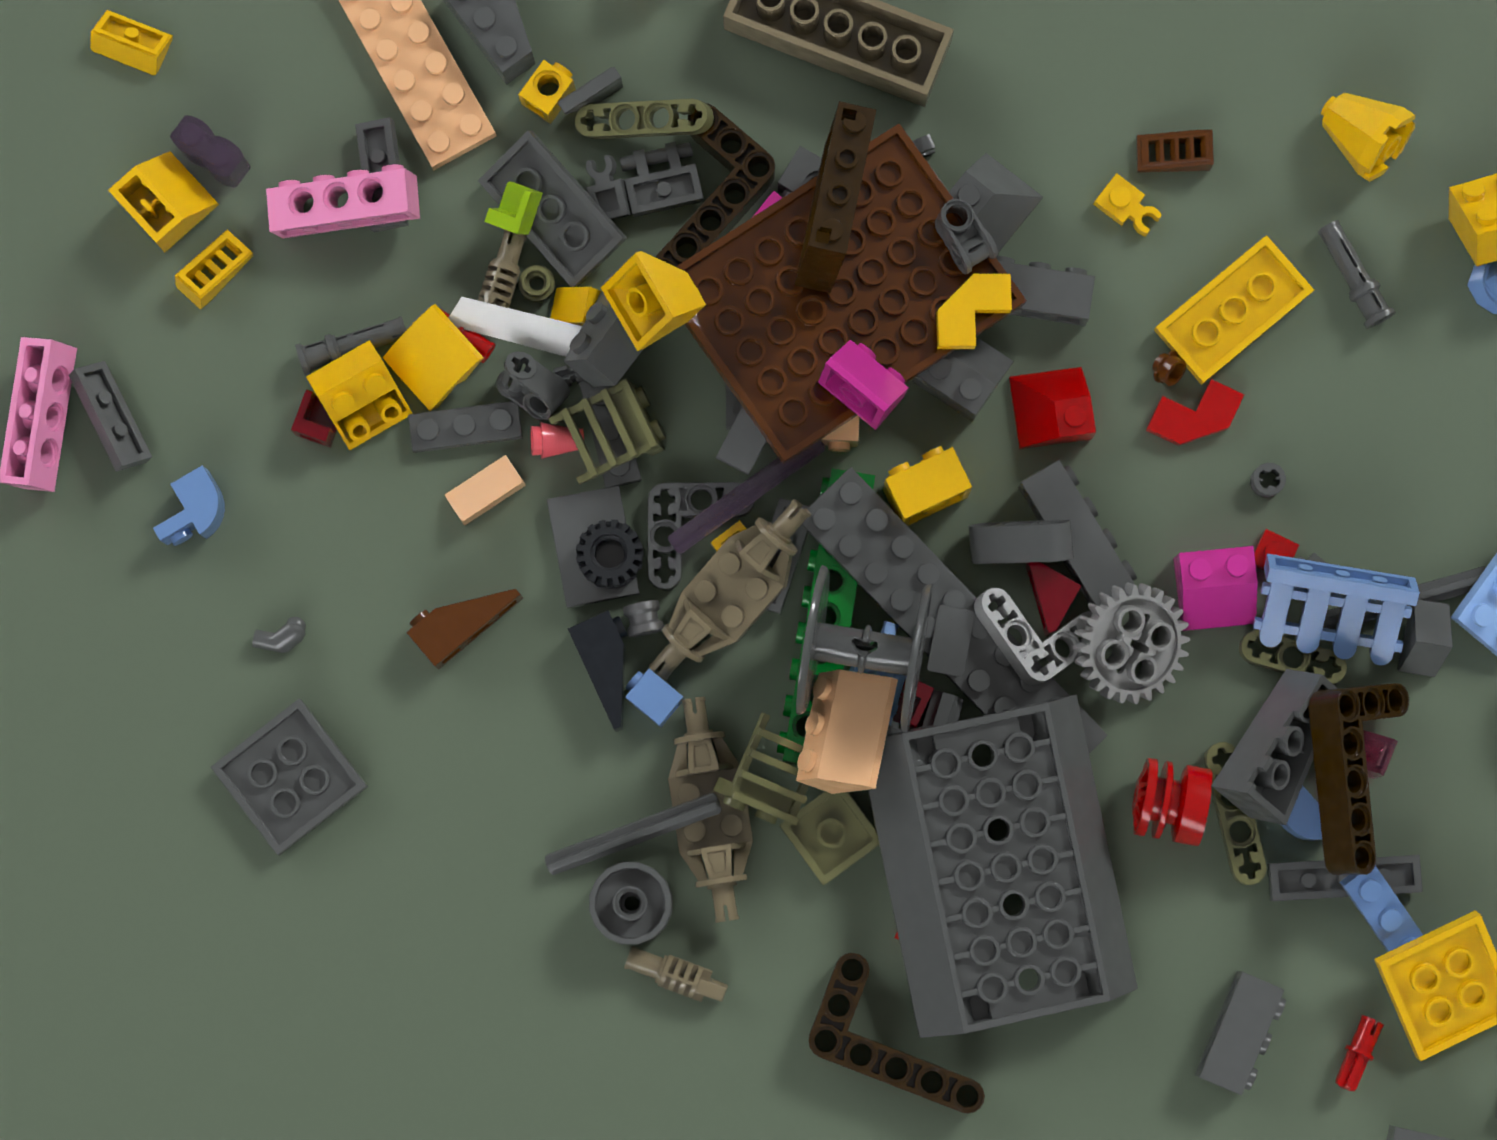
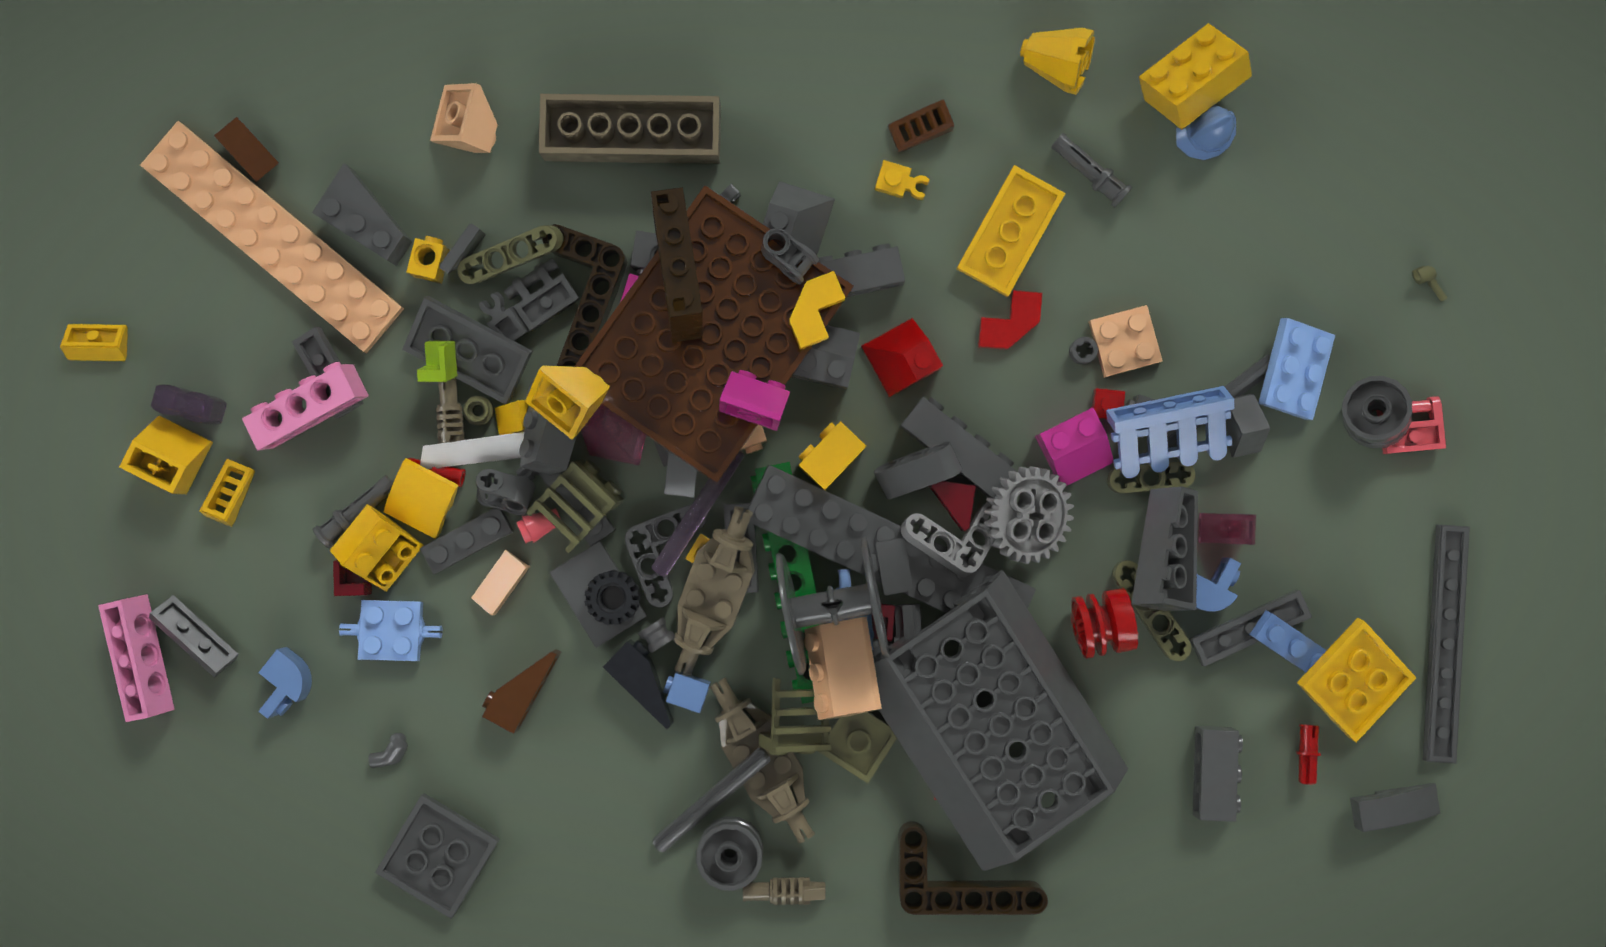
camera: 25 degrees left, 5 degrees up
(337, 496) = (390, 630): none -> light blue plate
(681, 370) = (613, 438): none -> clear pink slope
(1168, 368) = (978, 294): reddish brown plate -> none
(1321, 488) = (1125, 341): none -> light nougat plate
(1342, 770) = (1223, 552): dark brown beam -> none

